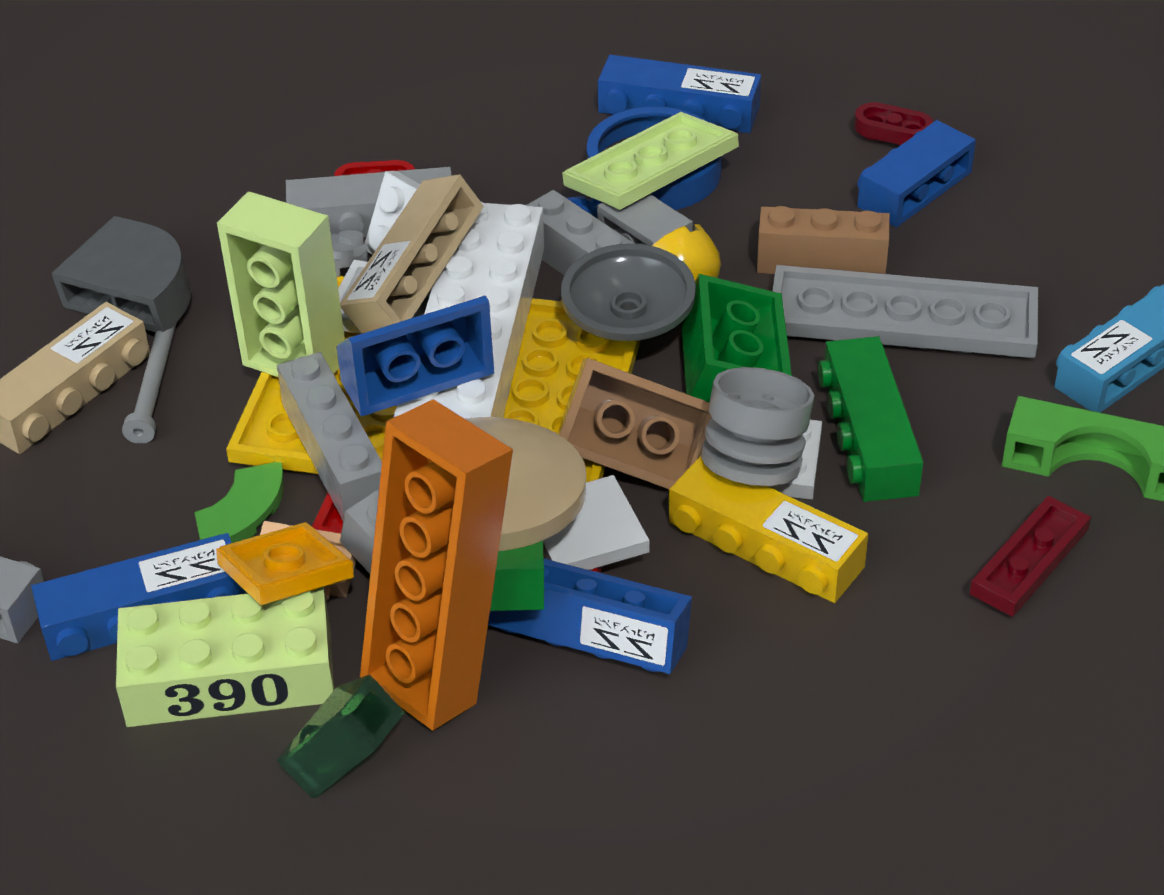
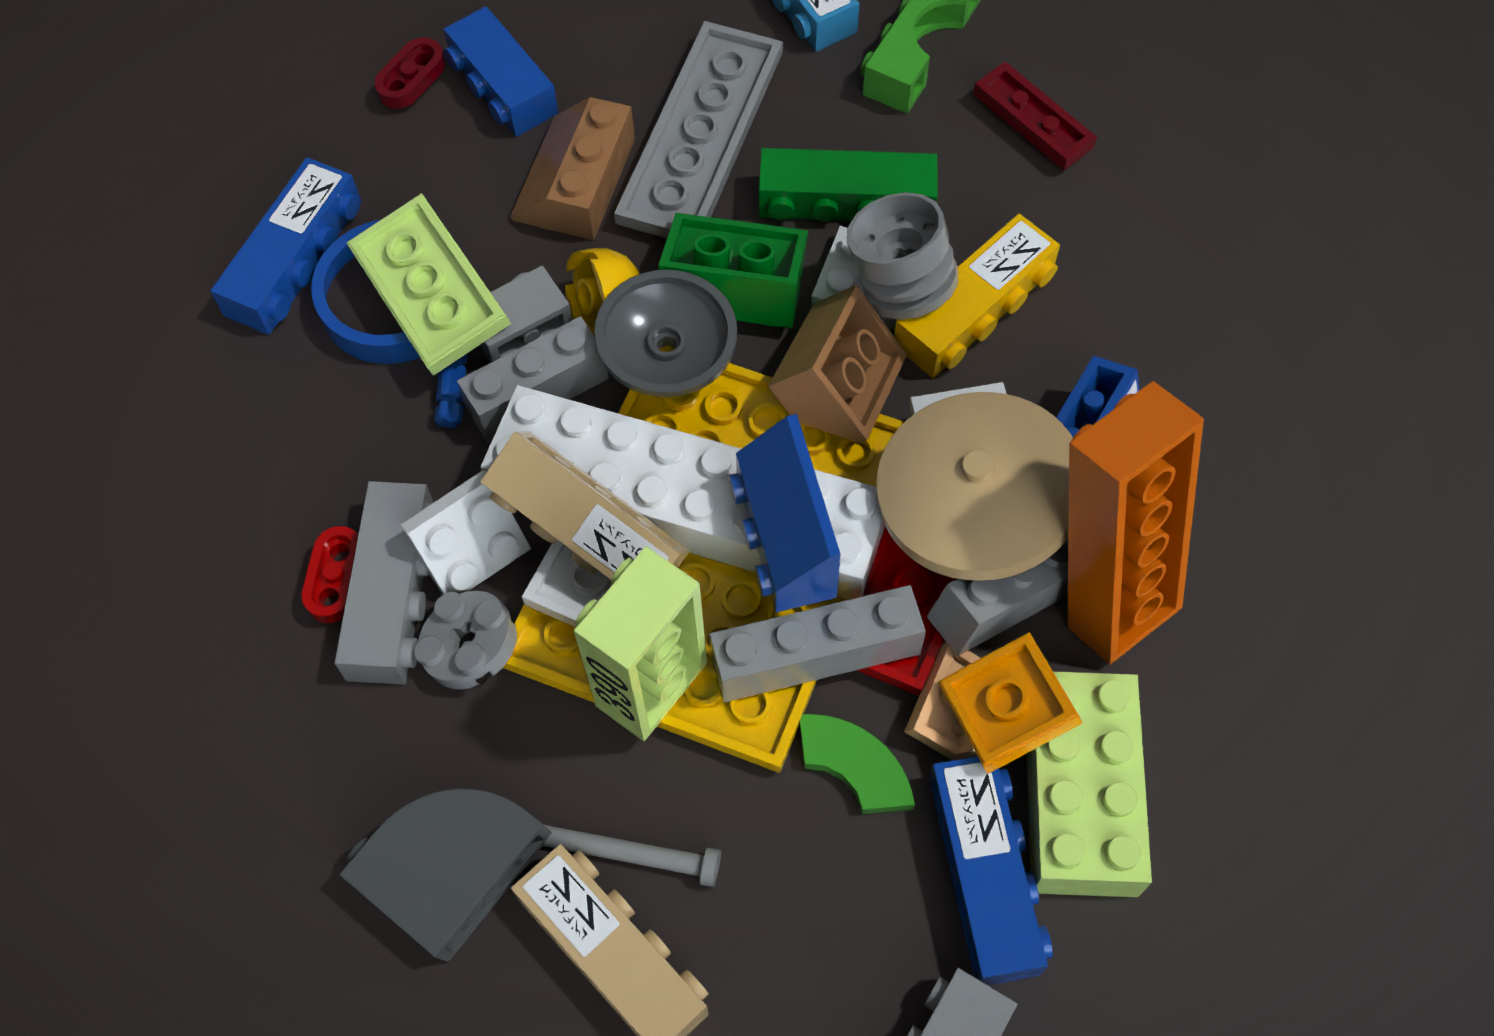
camera: 80 degrees left, 20 degrees up
(340, 734) = (1200, 678): clear green slope -> none

